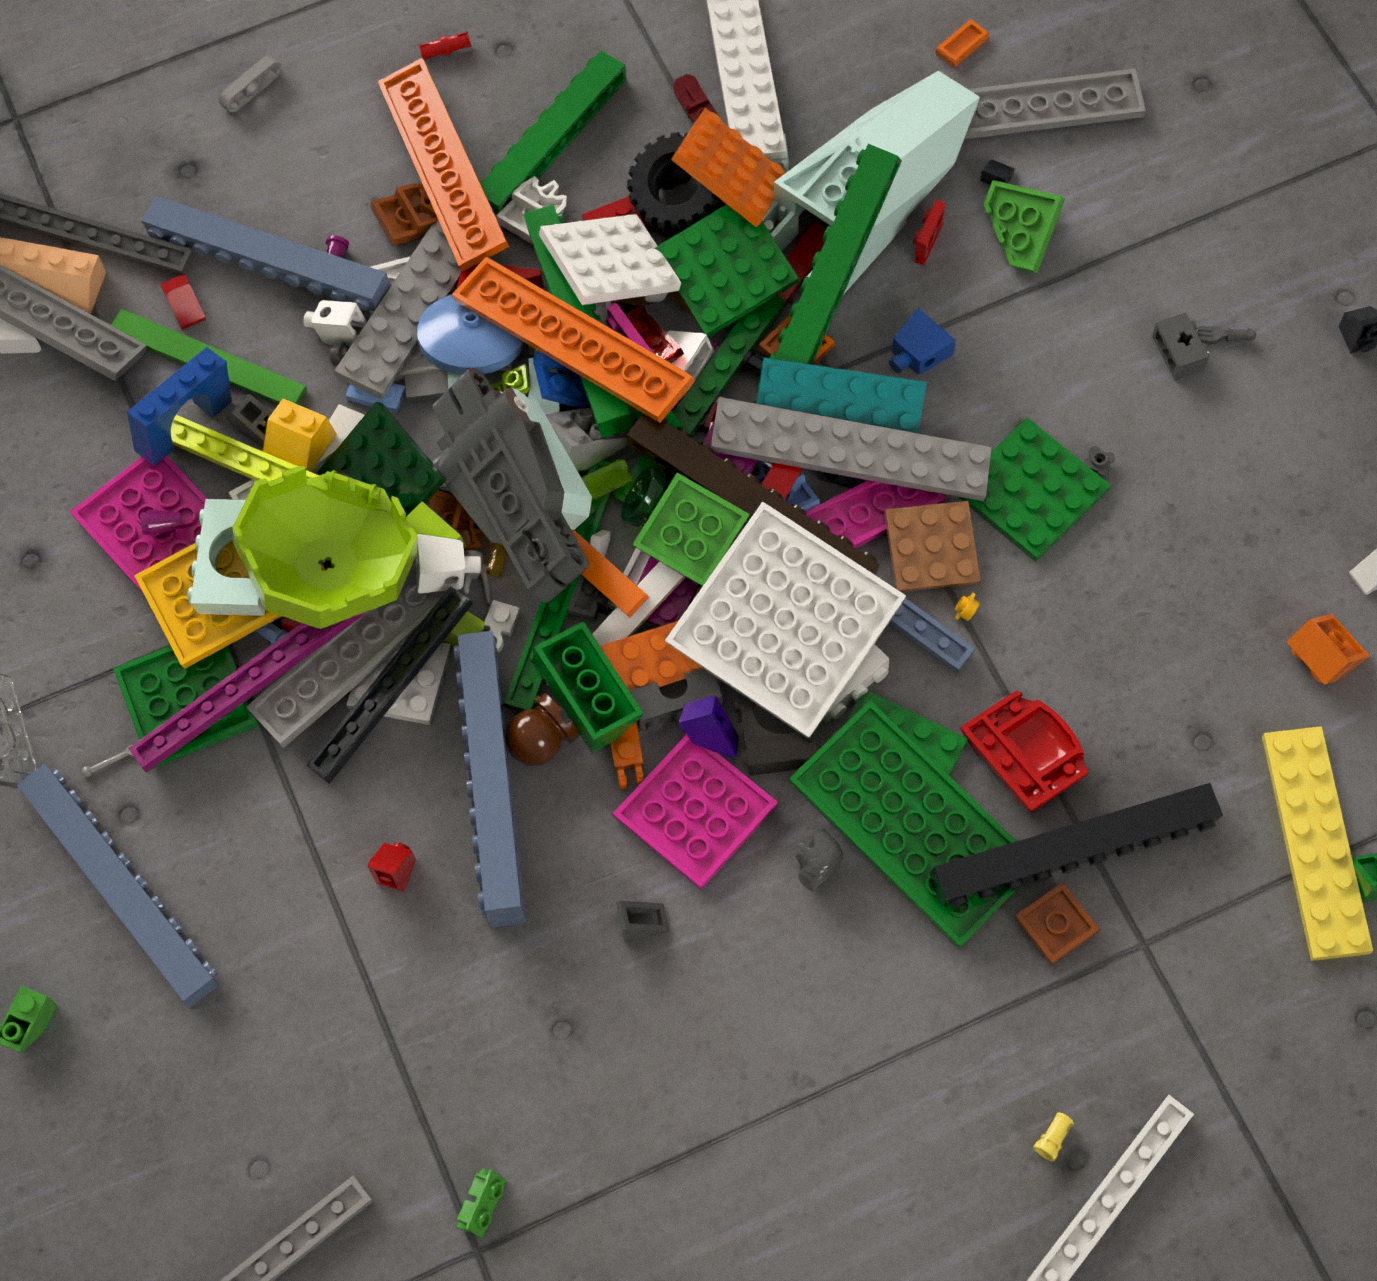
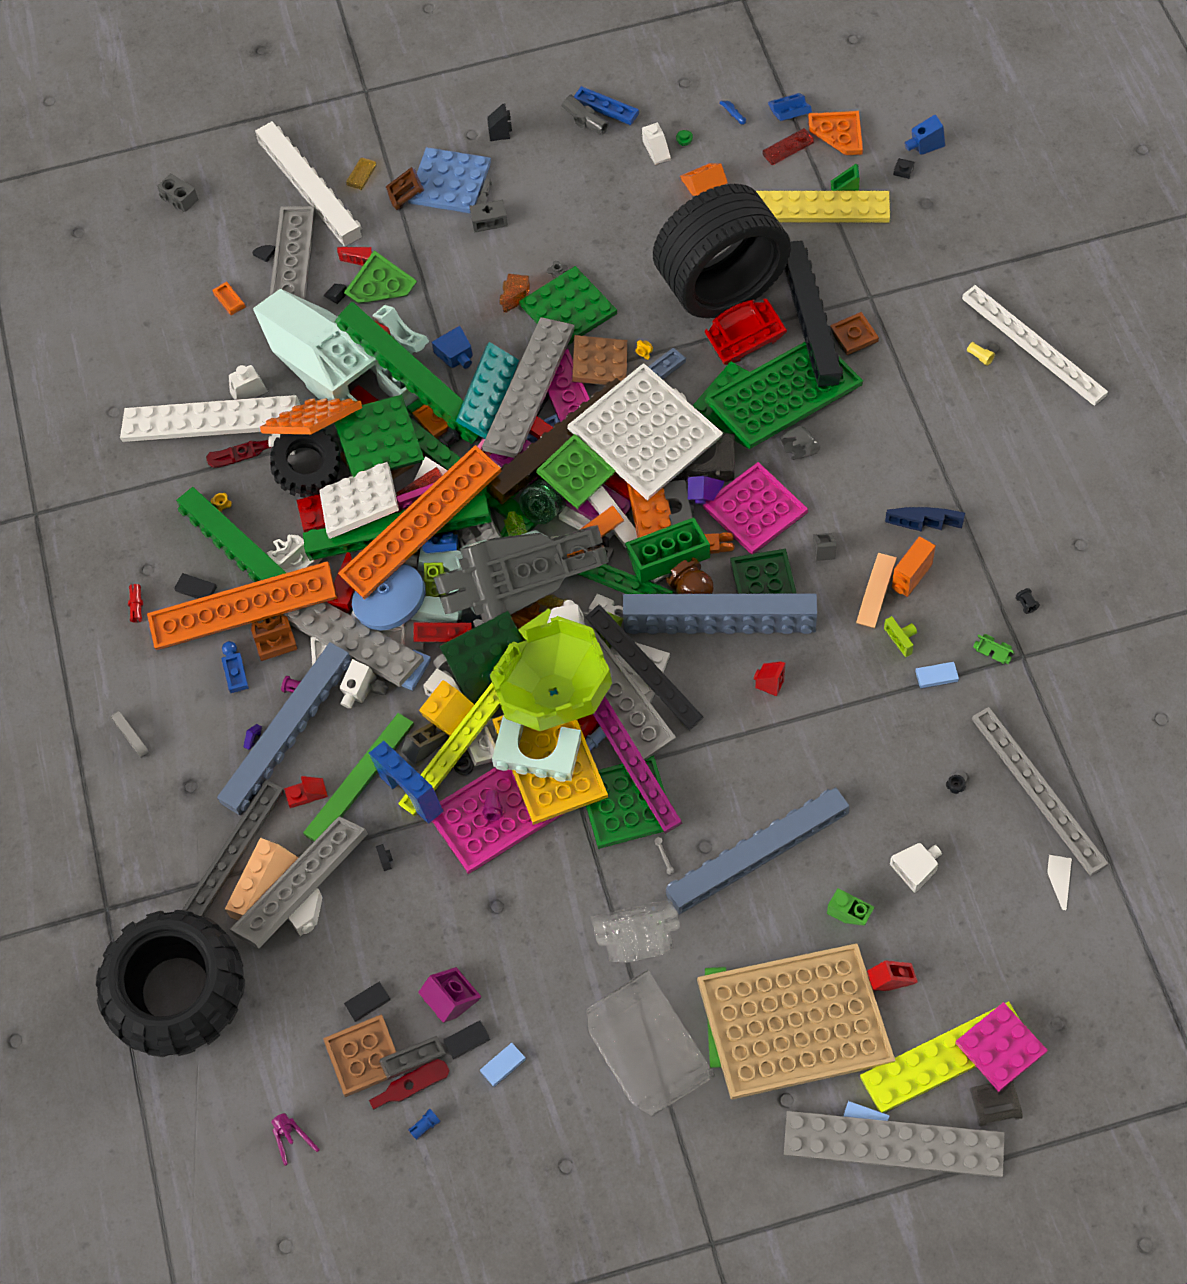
camera: 80 degrees left, 5 degrees down
(87, 408) = (385, 857): none -> black plate
(101, 1111) = (916, 865): none -> white torso
(228, 476) = (464, 760): none -> black plate
(233, 1158) = (956, 779): none -> black plate
(258, 219) = (250, 736): none -> dark purple tile
(357, 178) = (234, 668): none -> blue plate
(424, 394) = (438, 631): none -> red plate
(428, 1117) = (937, 675): none -> light blue tile
(478, 109) = (194, 586): none -> black tile
(488, 1052) = (900, 636): none -> lime tile
(565, 1007) = (876, 590): none -> light nougat slope
(569, 837) = (763, 573): none -> dark green plate
(572, 1249) = (1027, 601): none -> black bush
(604, 1056) = (913, 566): none -> orange brick
(615, 102) = (221, 497): none -> yellow plate
(706, 1061) = (917, 517): none -> dark blue slope
(808, 93) = (246, 383): none -> white torso
(935, 264) = (399, 331): none -> light aqua arch
(1042, 406) = (515, 289): none -> clear orange slope
(1052, 68) = (264, 252): none -> black tile
(1068, 185) = (354, 255): none -> red slope
(1129, 670) = (703, 229): none -> black tyre
(1188, 96) = (309, 184): none -> white brick
(1208, 214) = (402, 185): none -> reddish brown plate
(1229, 162) = (361, 173): none -> clear yellow tile
(1244, 282) = (450, 179): none -> medium blue plate

